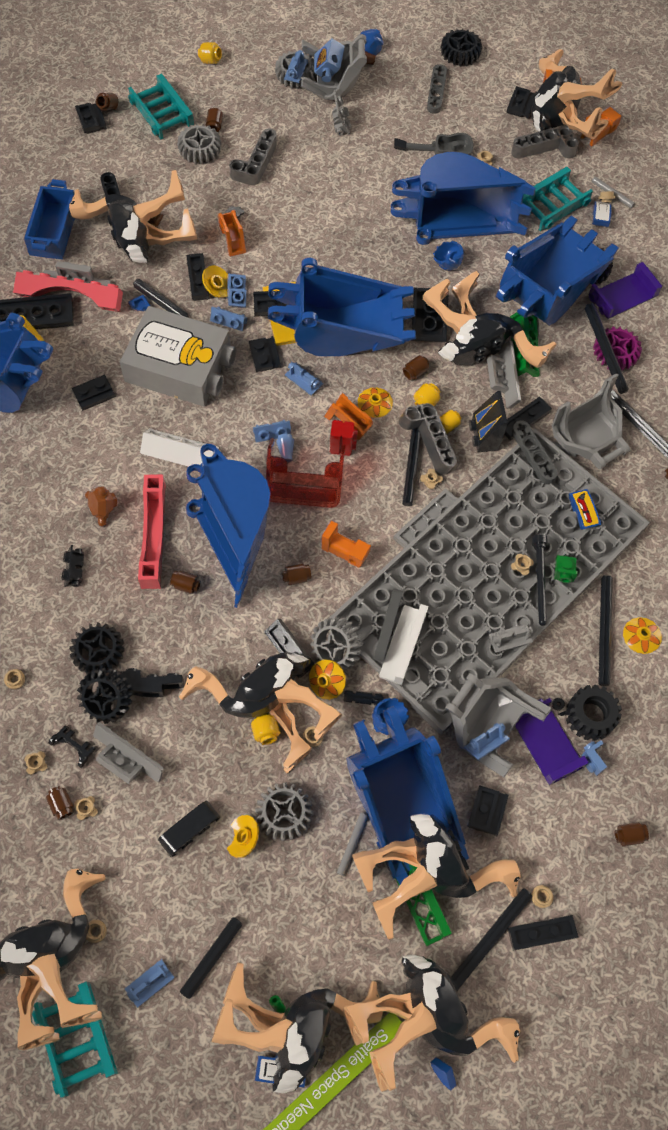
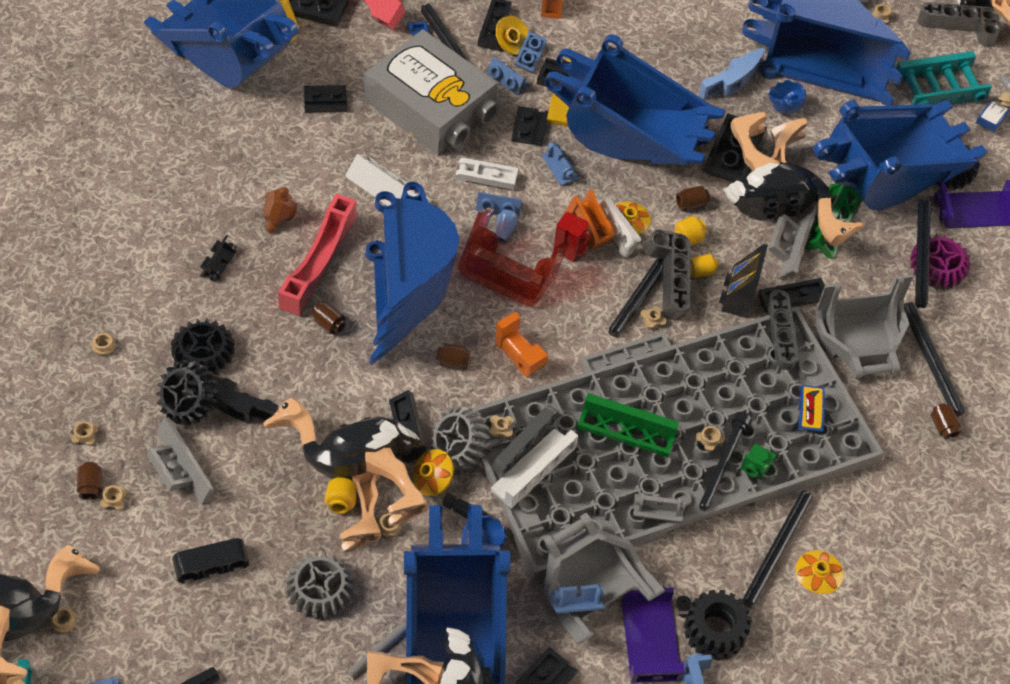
camera: 20 degrees right, 10 degrees down
(61, 737) = (127, 420): black piece -> none
(245, 838) = (266, 592): yellow dish -> none
(250, 407) = (486, 173): none -> white plate
(364, 626) = (501, 432): none -> tan plate
(375, 414) = (624, 233): none -> white plate
(401, 252) = (738, 74): none -> light blue slope
(461, 573) = (649, 424): none -> green fence

